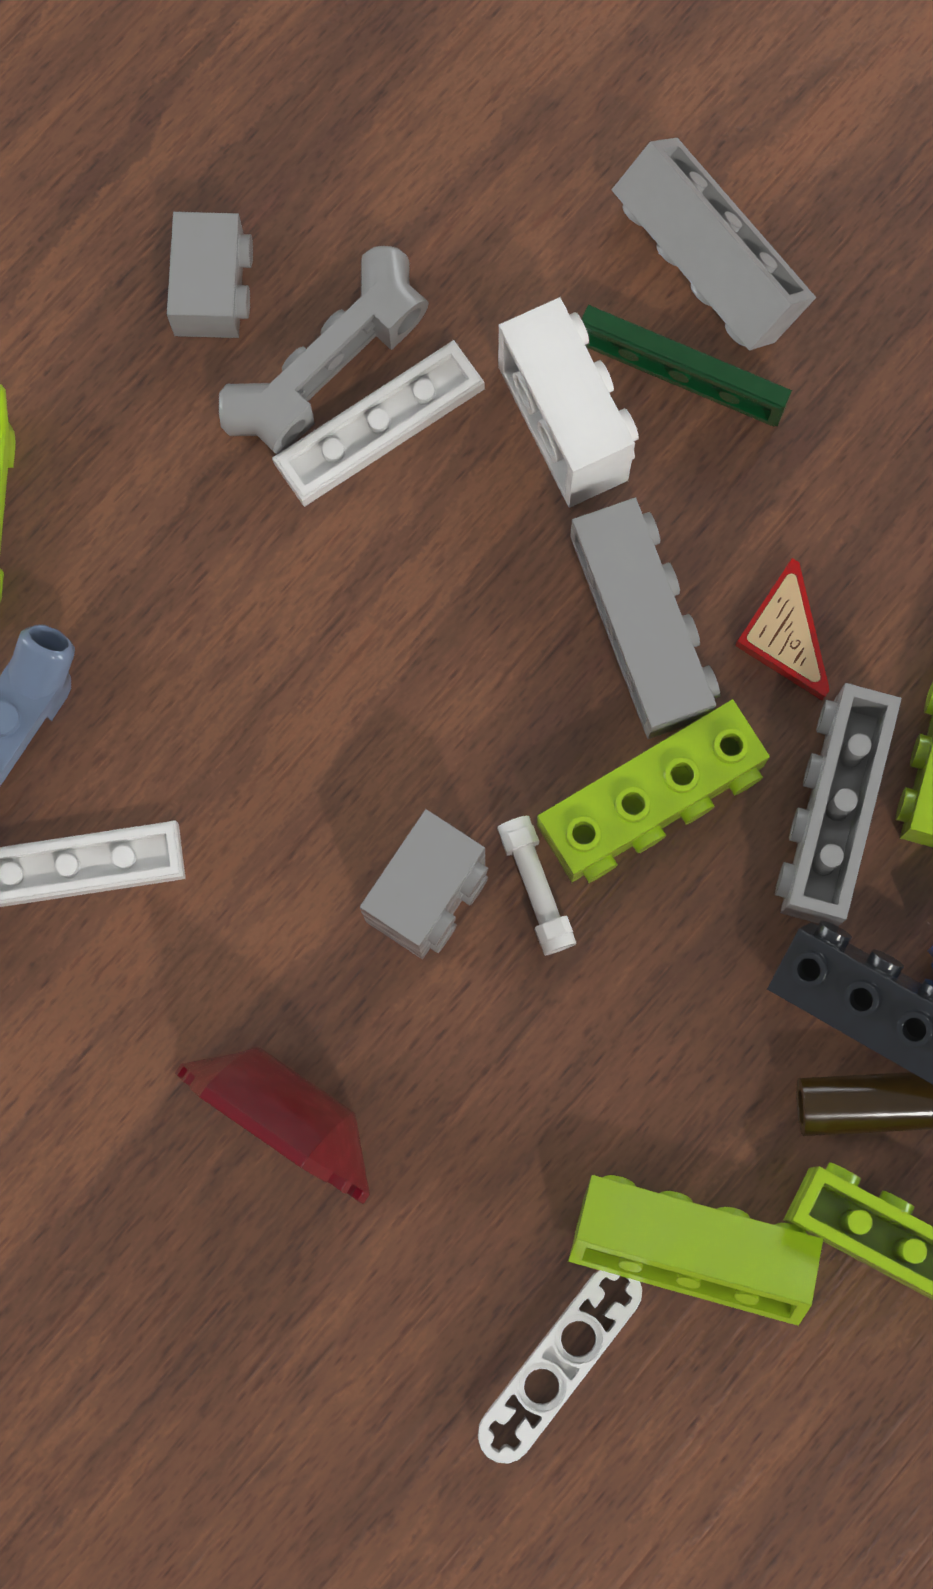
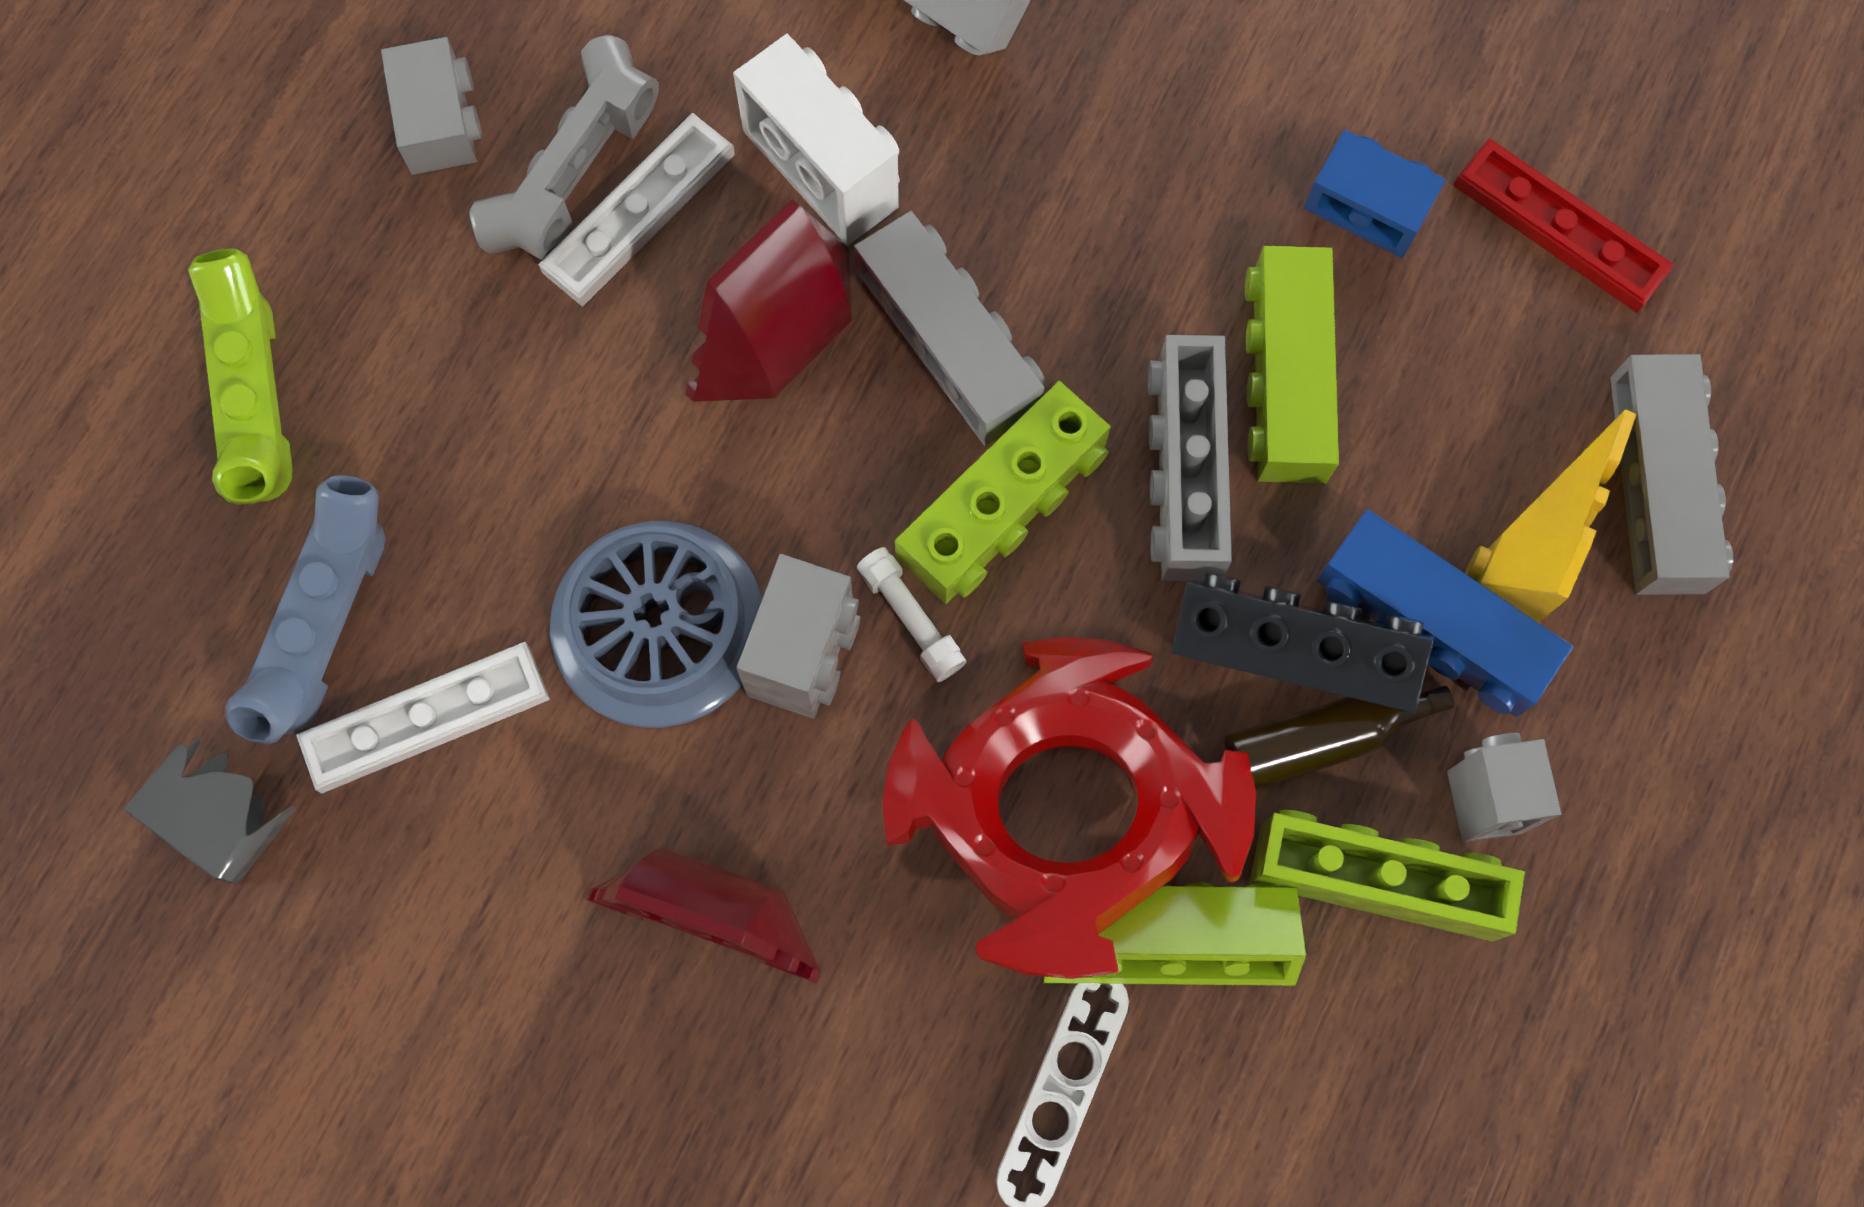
camera: 20 degrees left, 5 degrees down
(377, 831) = (655, 701): none -> sand blue piece
(481, 563) = (771, 309): none -> dark red wedge
(611, 1198) = (1065, 904): none -> red piece
(685, 367) = (930, 85): dark green tile -> none
(785, 634) = (1092, 315): tile -> none

